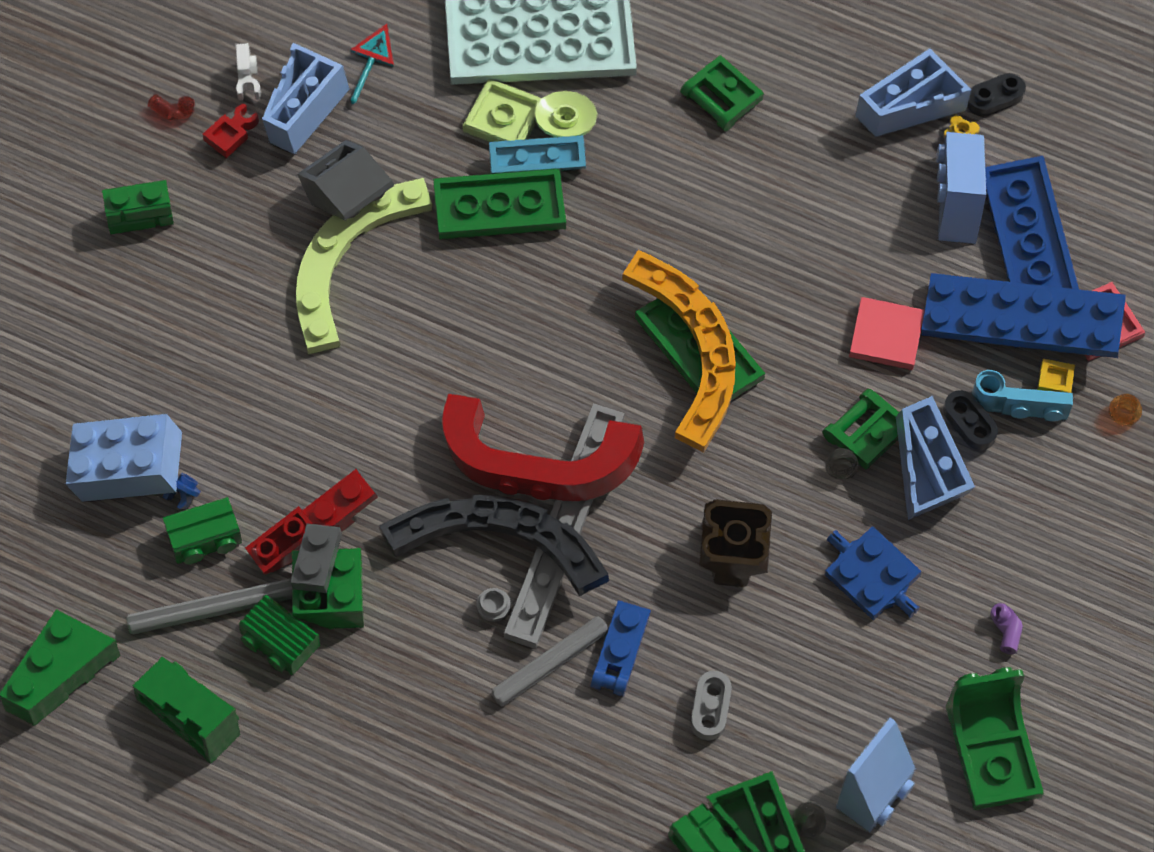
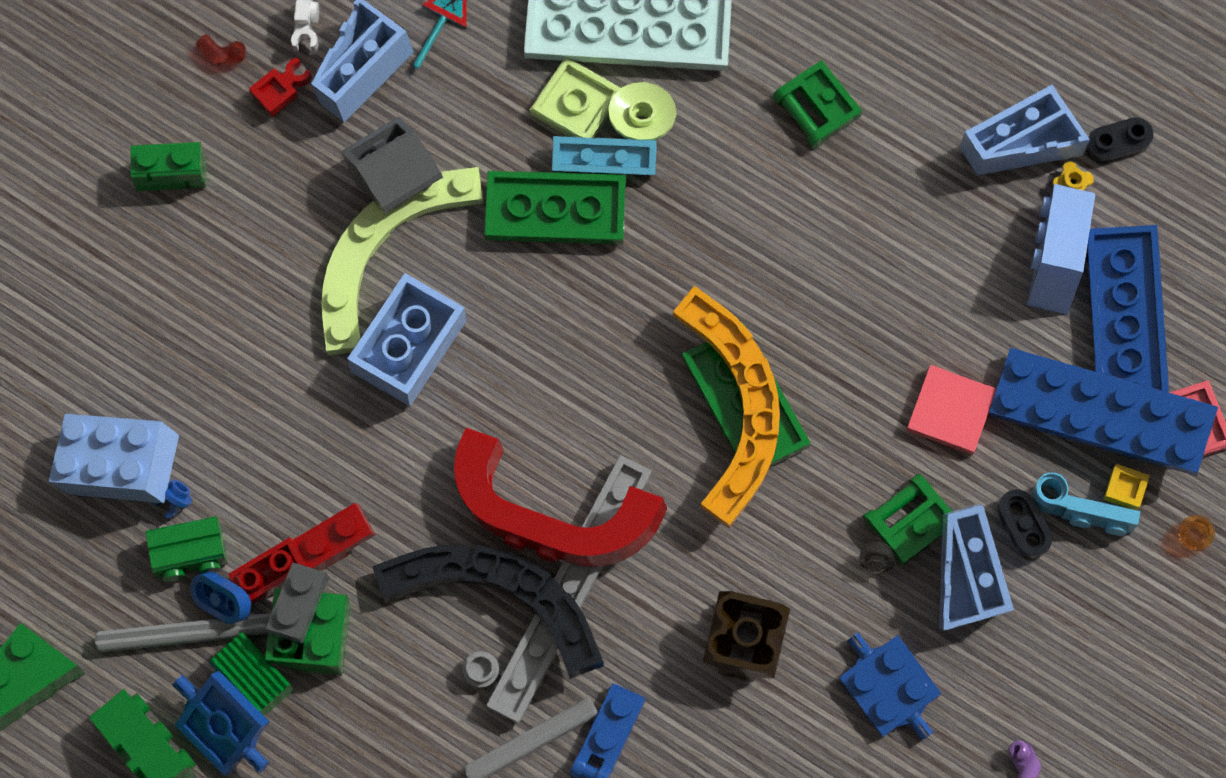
camera: 10 degrees right, 10 degrees up
(248, 568) = (220, 597): none -> blue plate
(258, 677) = (221, 723): none -> blue plate
(382, 327) = (407, 339): none -> light blue brick

